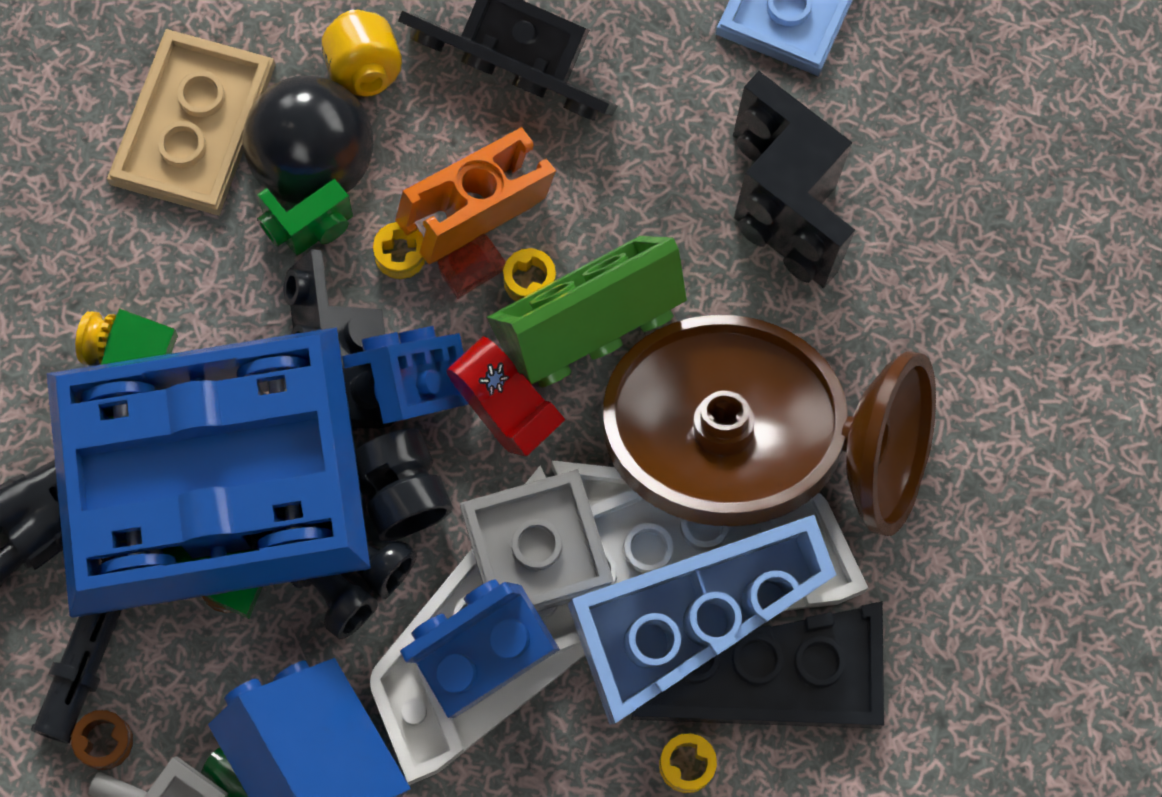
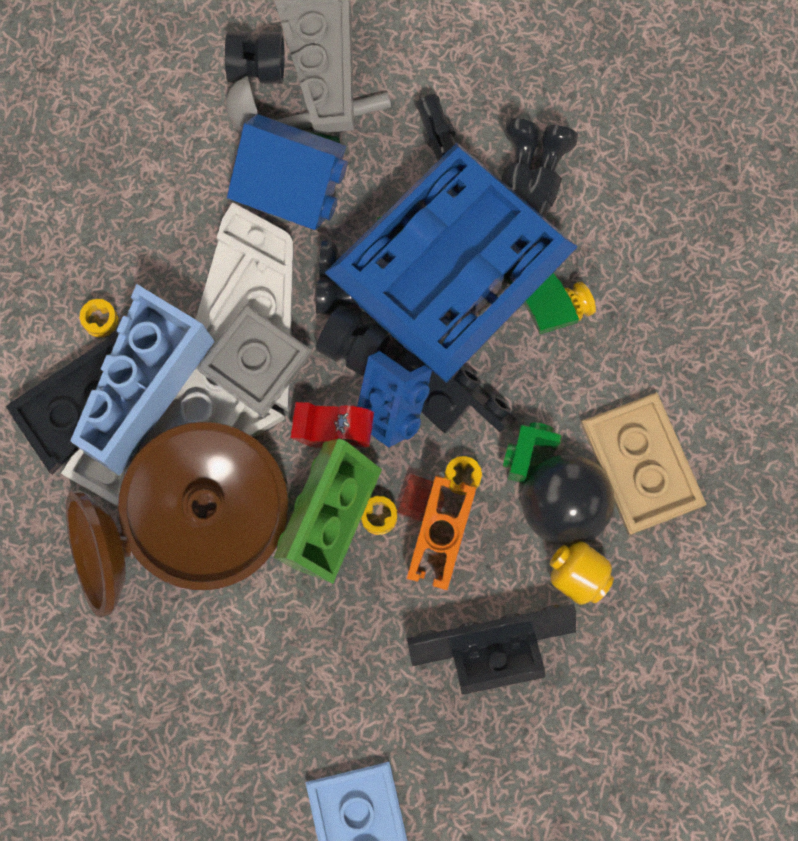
camera: 150 degrees right, 5 degrees up
(83, 746) = (393, 127): reddish brown bush -> none
(480, 646) = (239, 282): blue bracket -> none
(792, 175) = (262, 673): black bracket -> none

